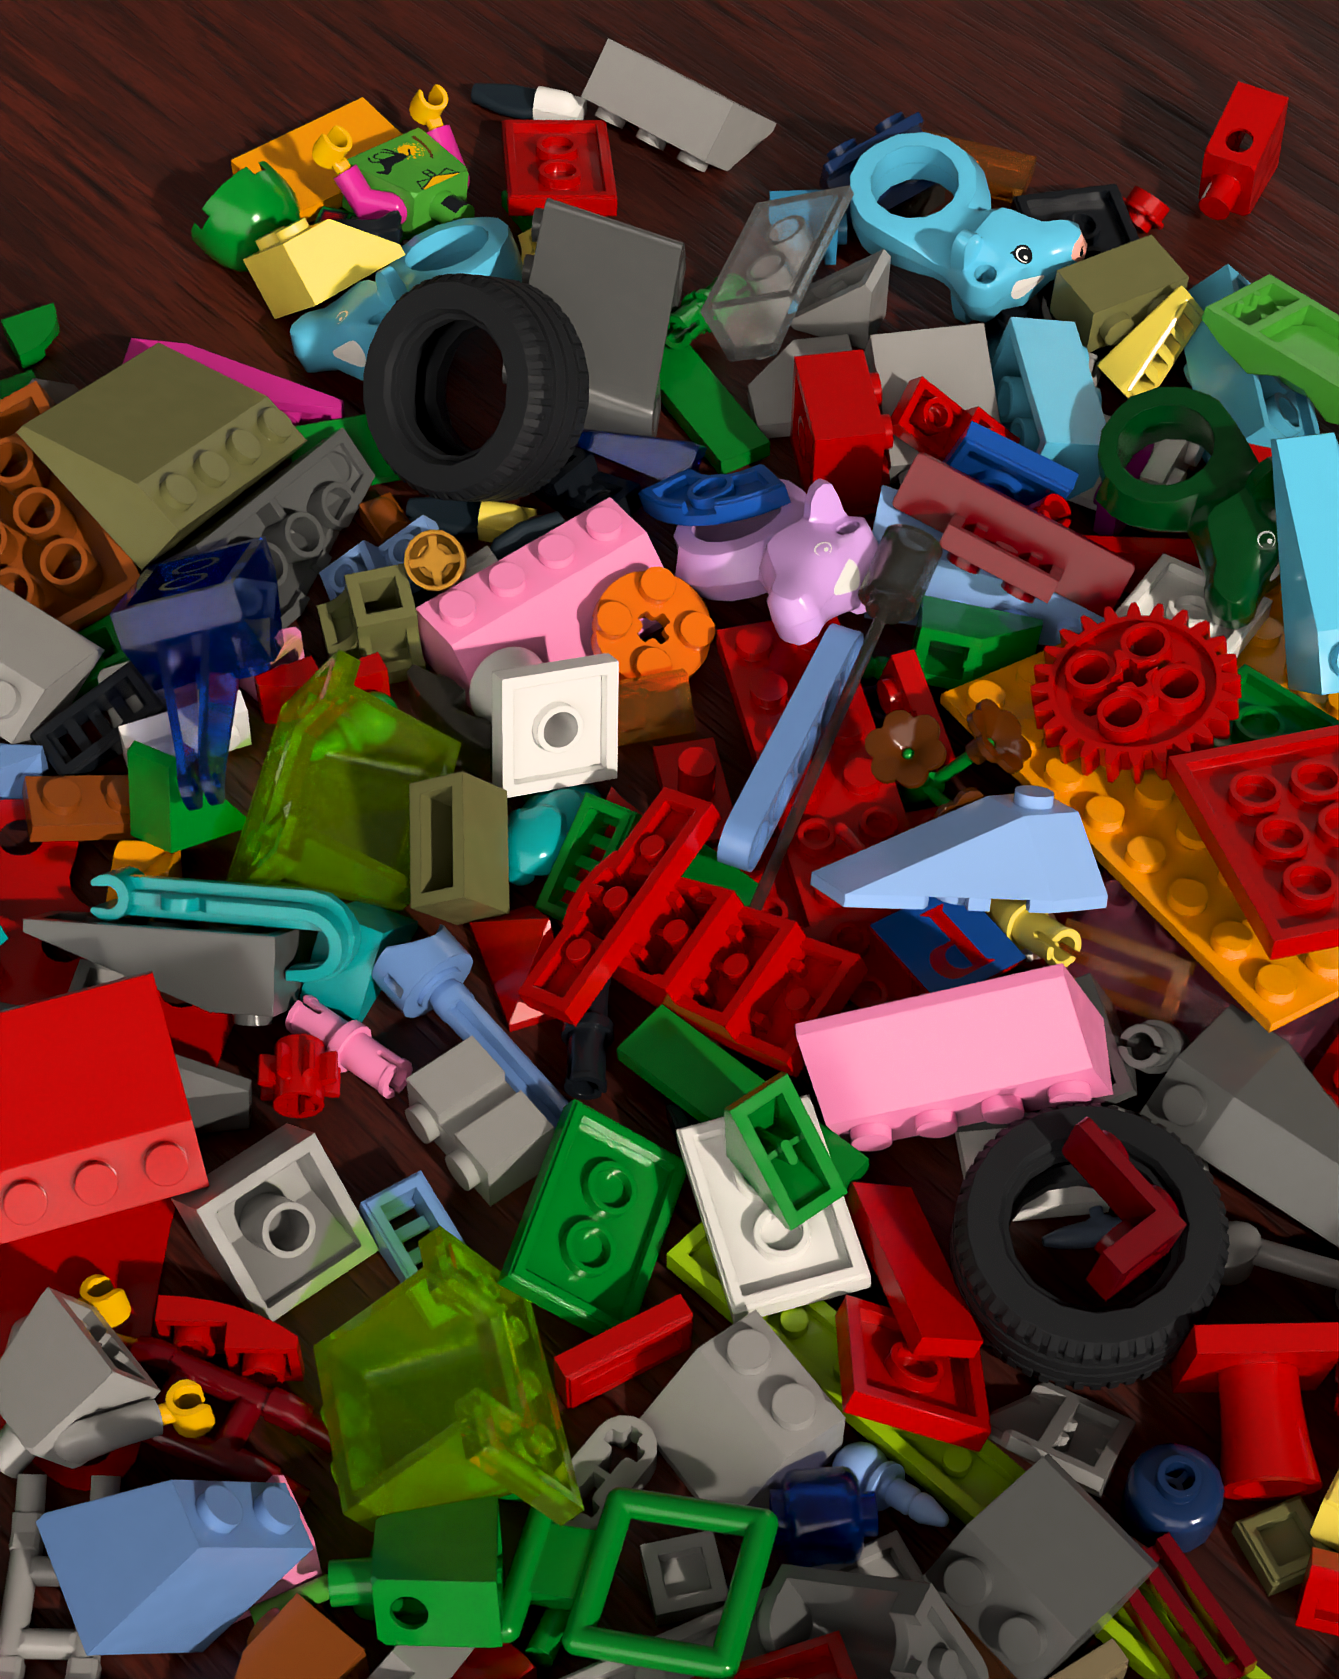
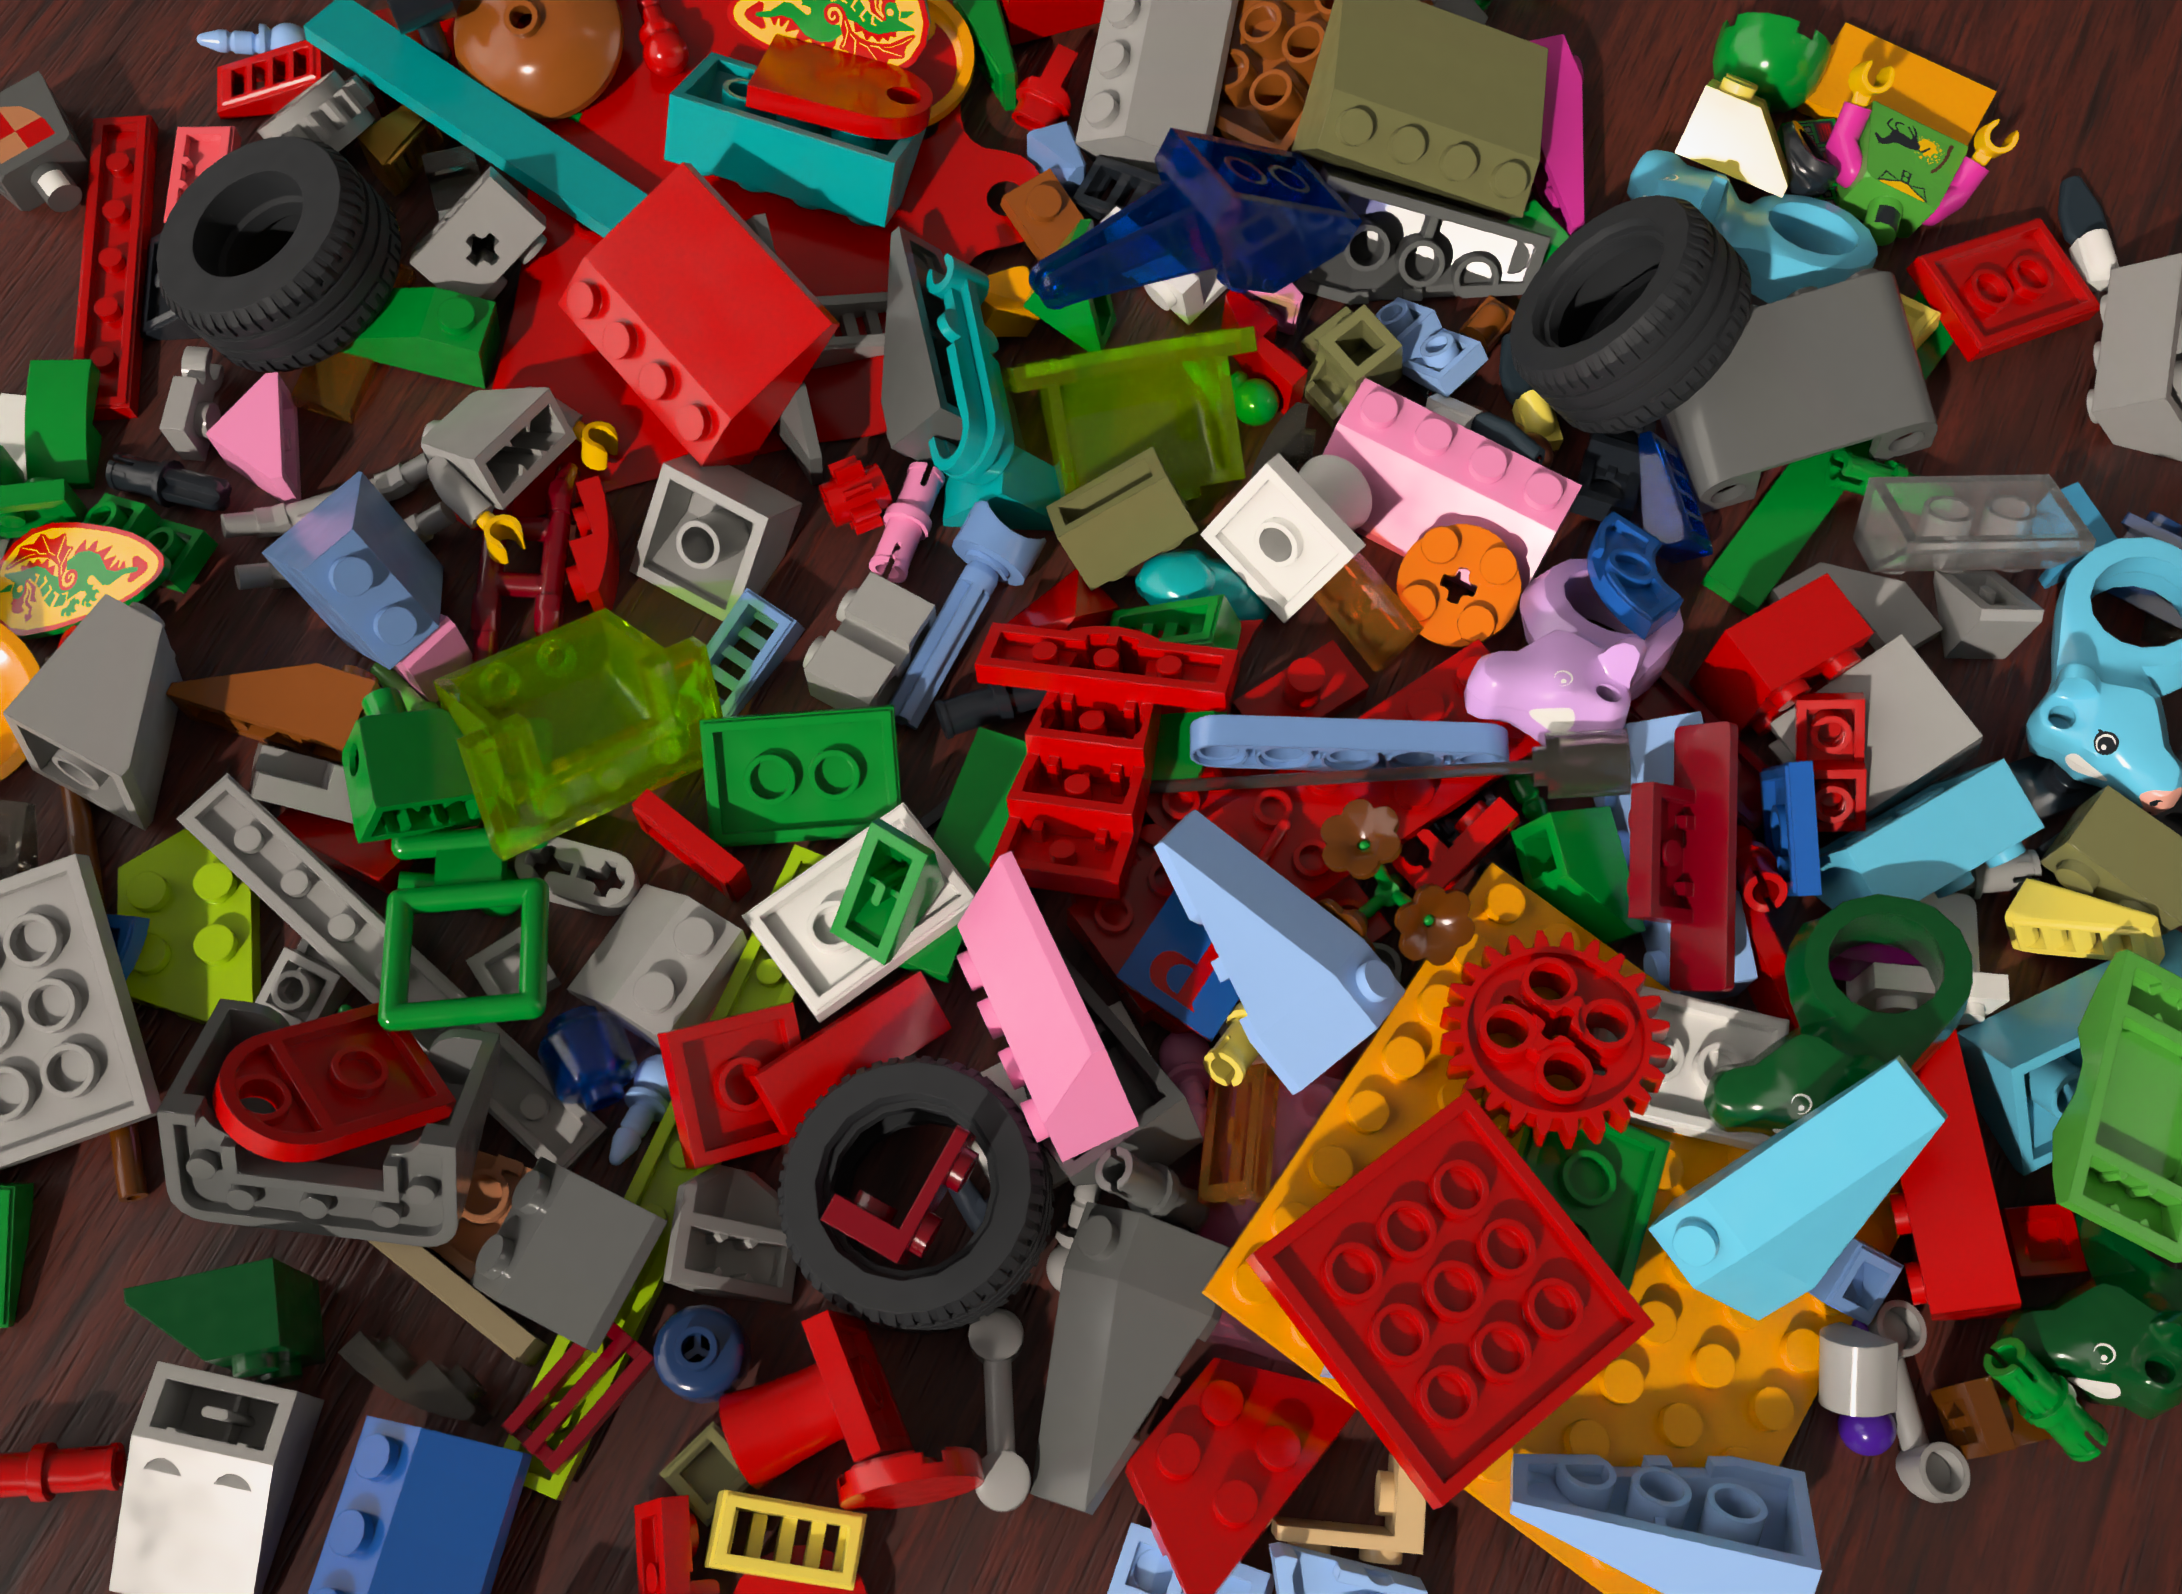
camera: 65 degrees right, 15 degrees up
(435, 560) = (1408, 369): pearl gold wheel -> none

